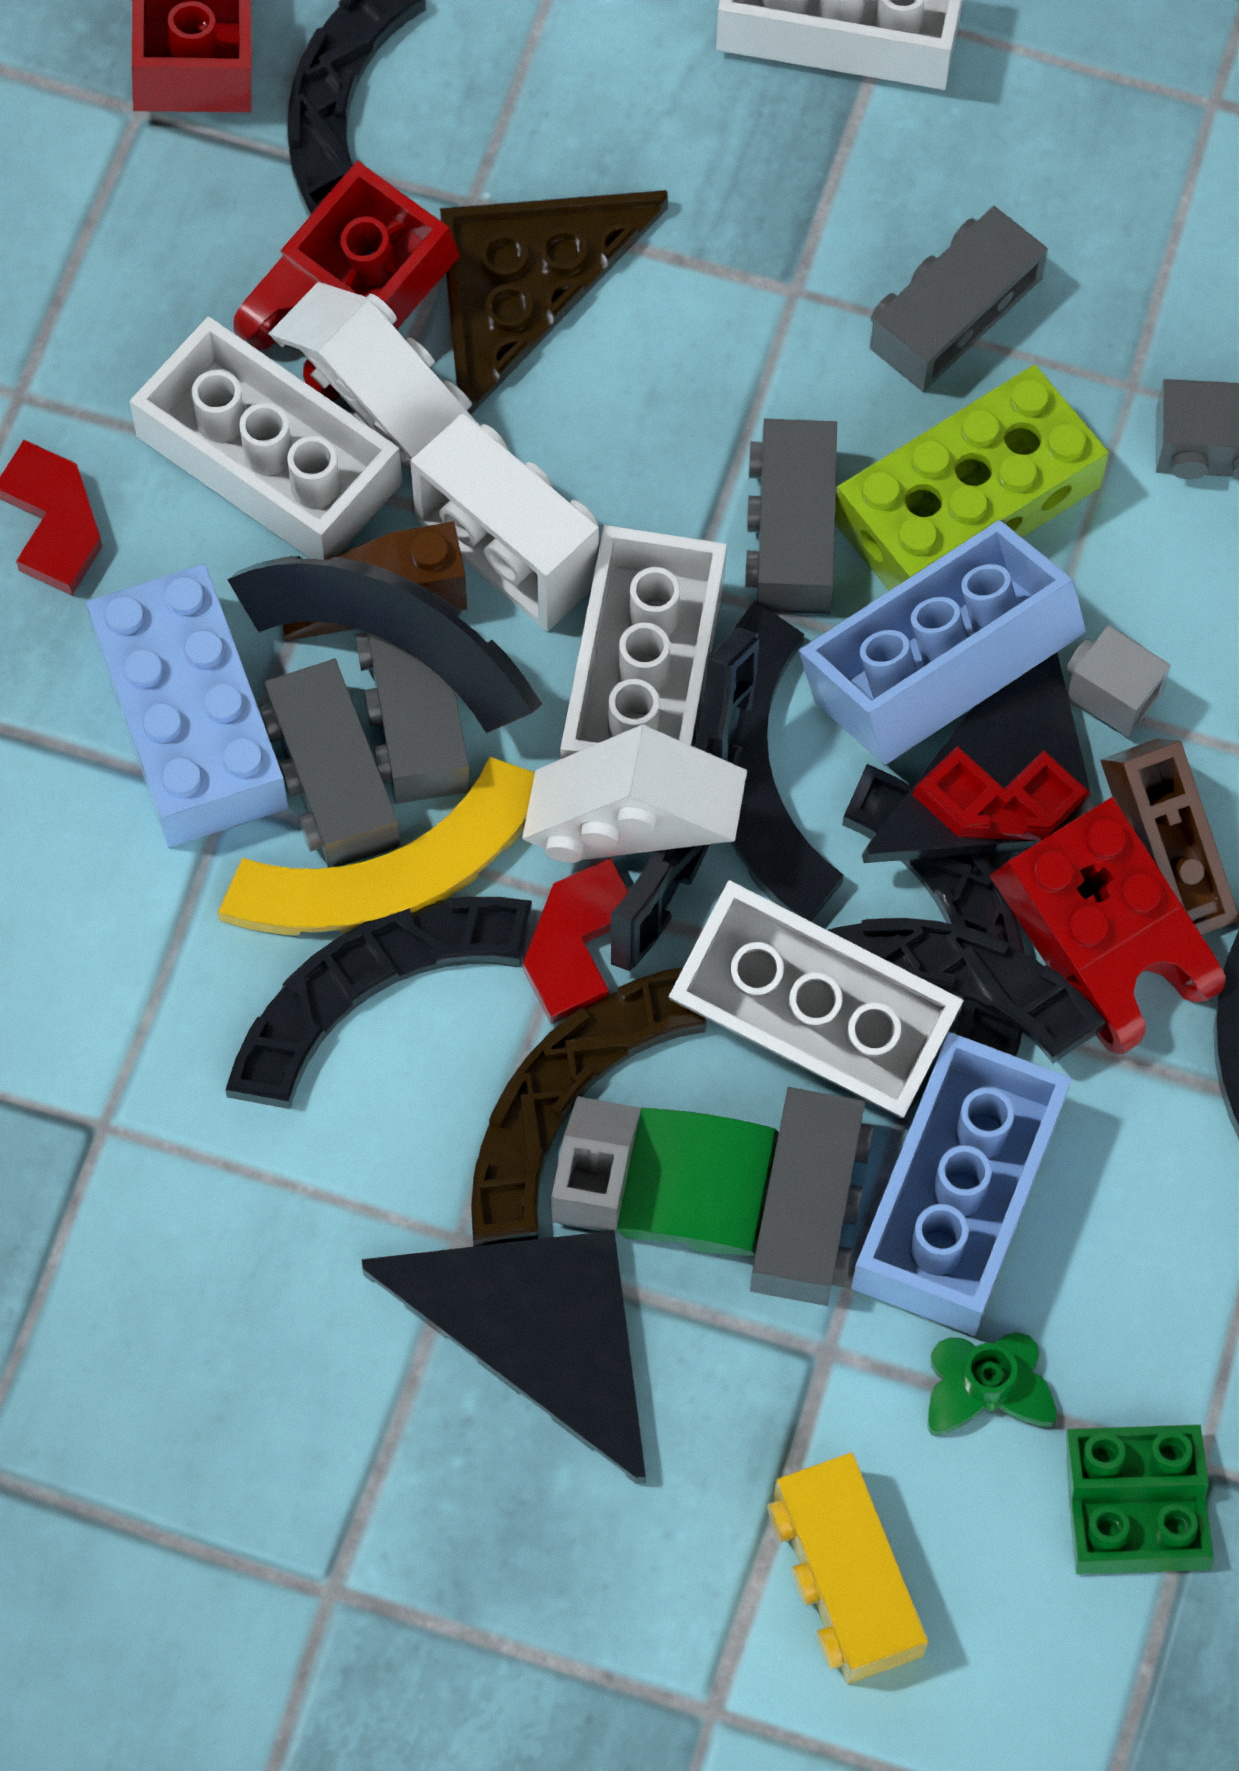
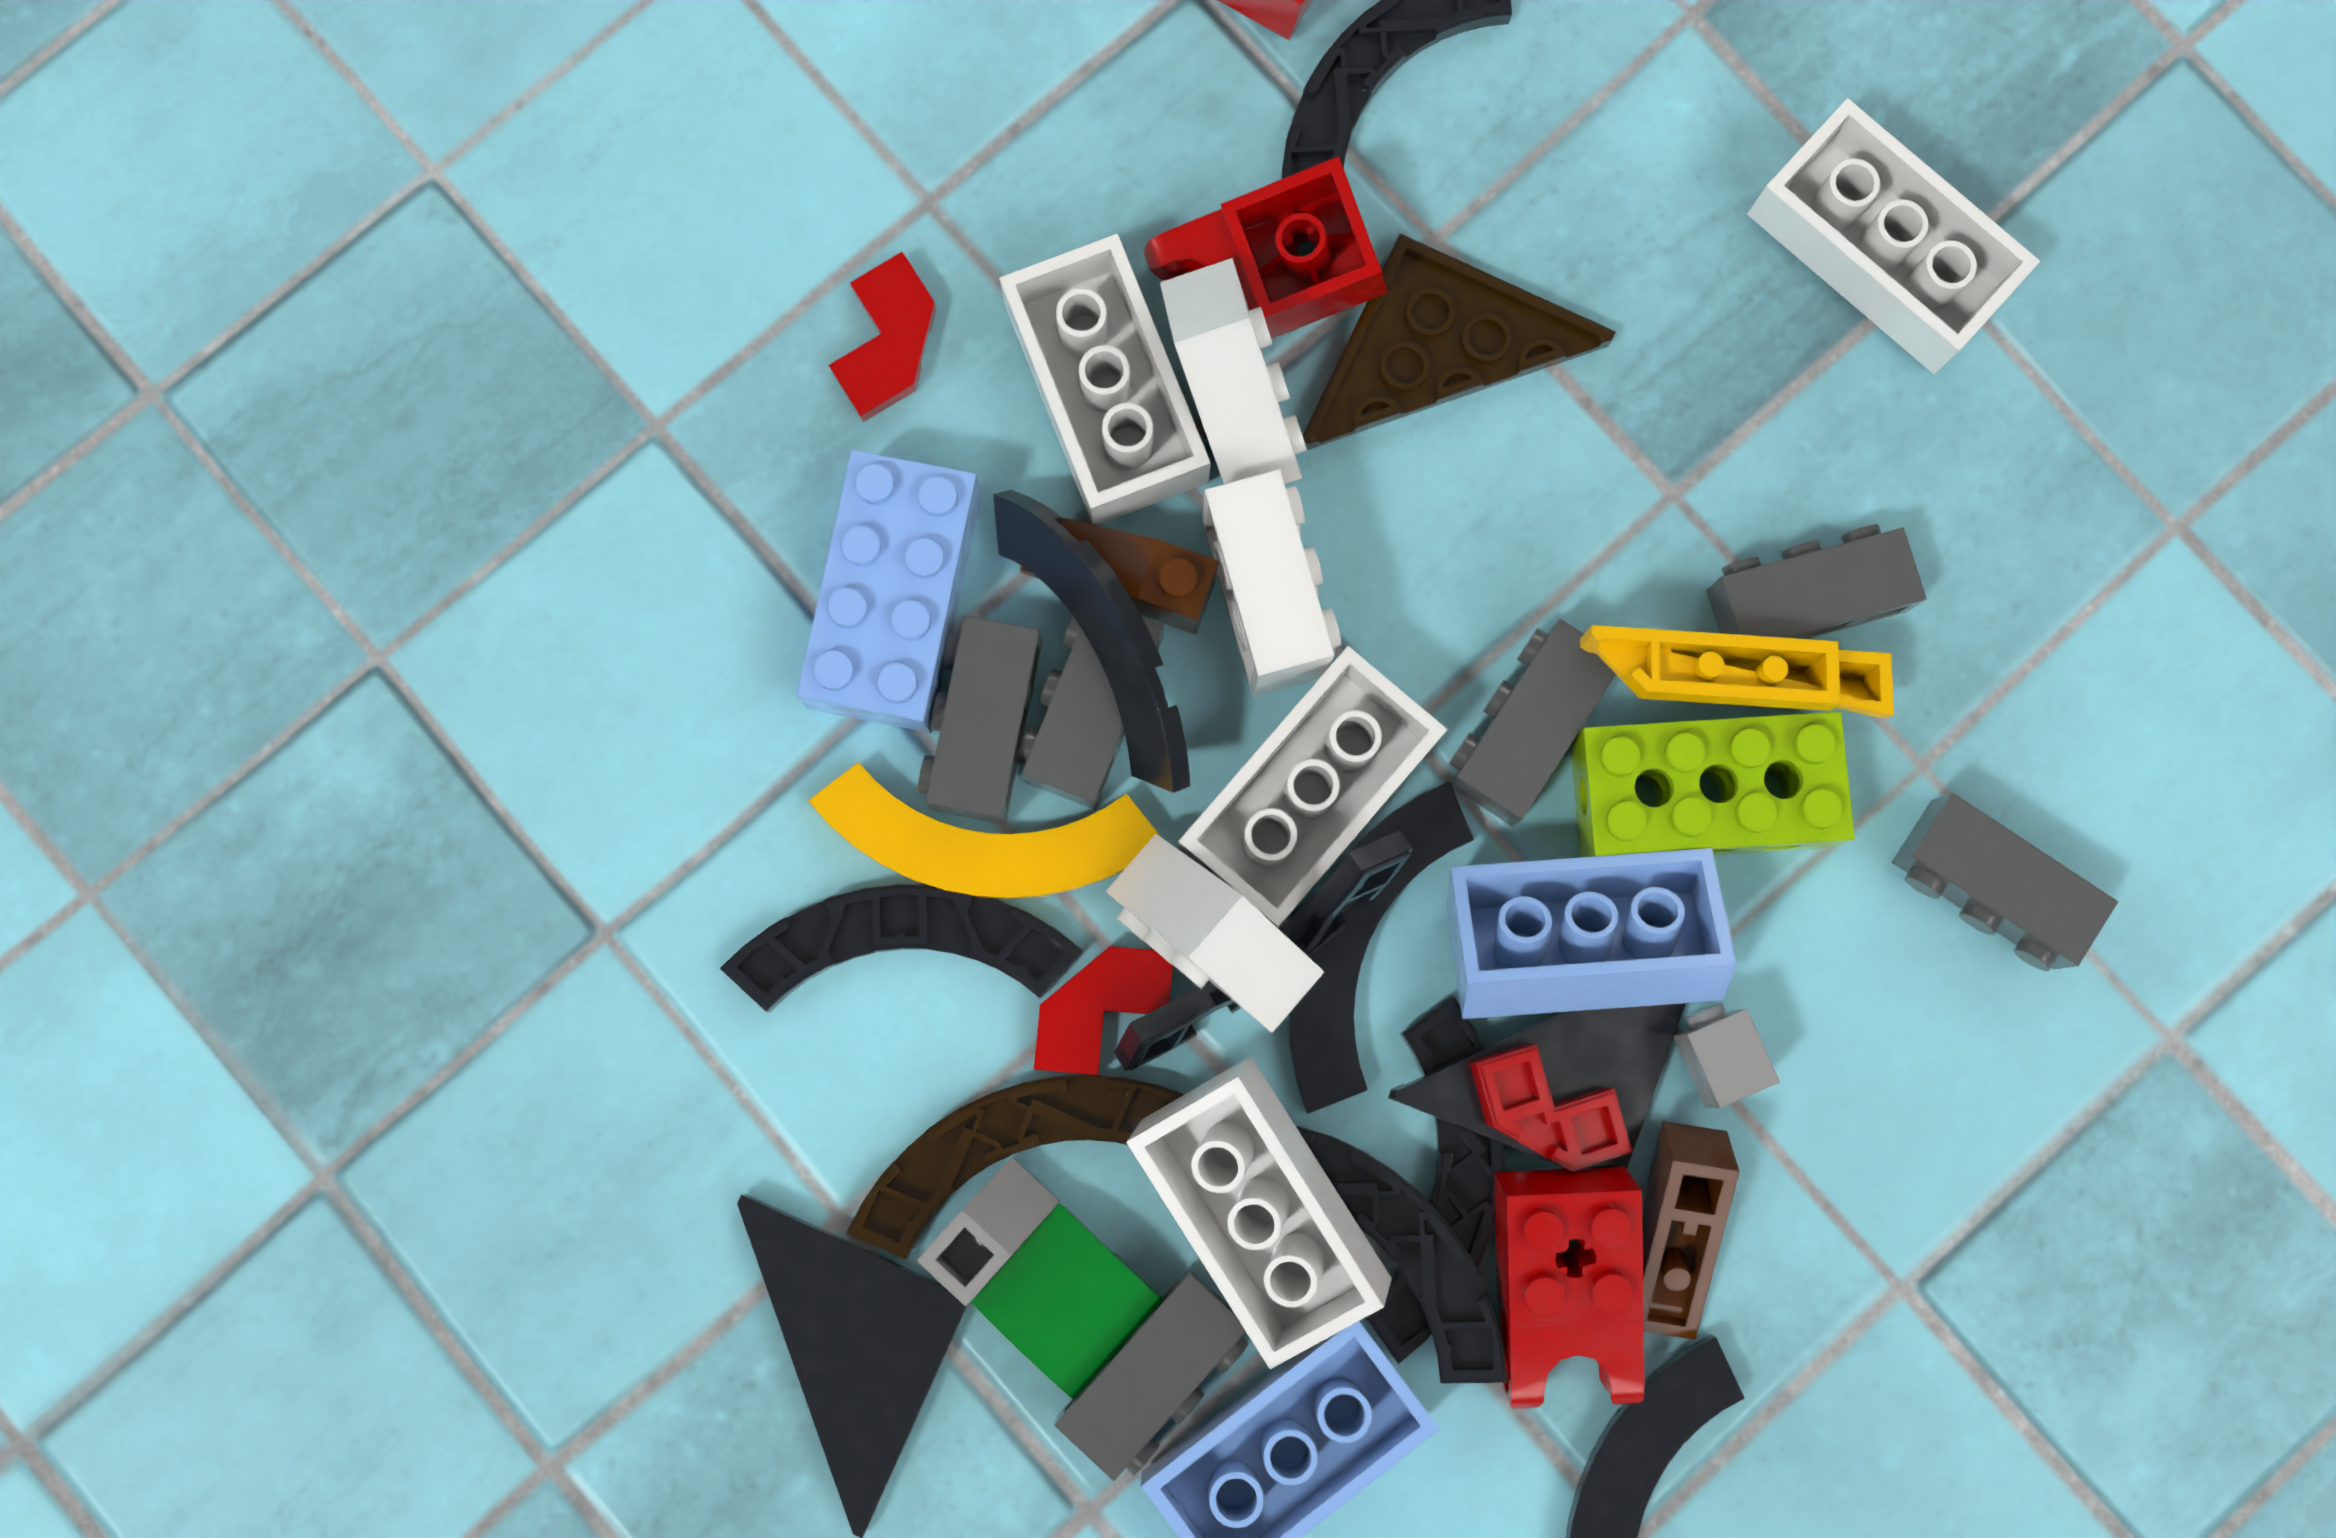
camera: 30 degrees right, 15 degrees up
(933, 370) = (1745, 669): none -> yellow wedge

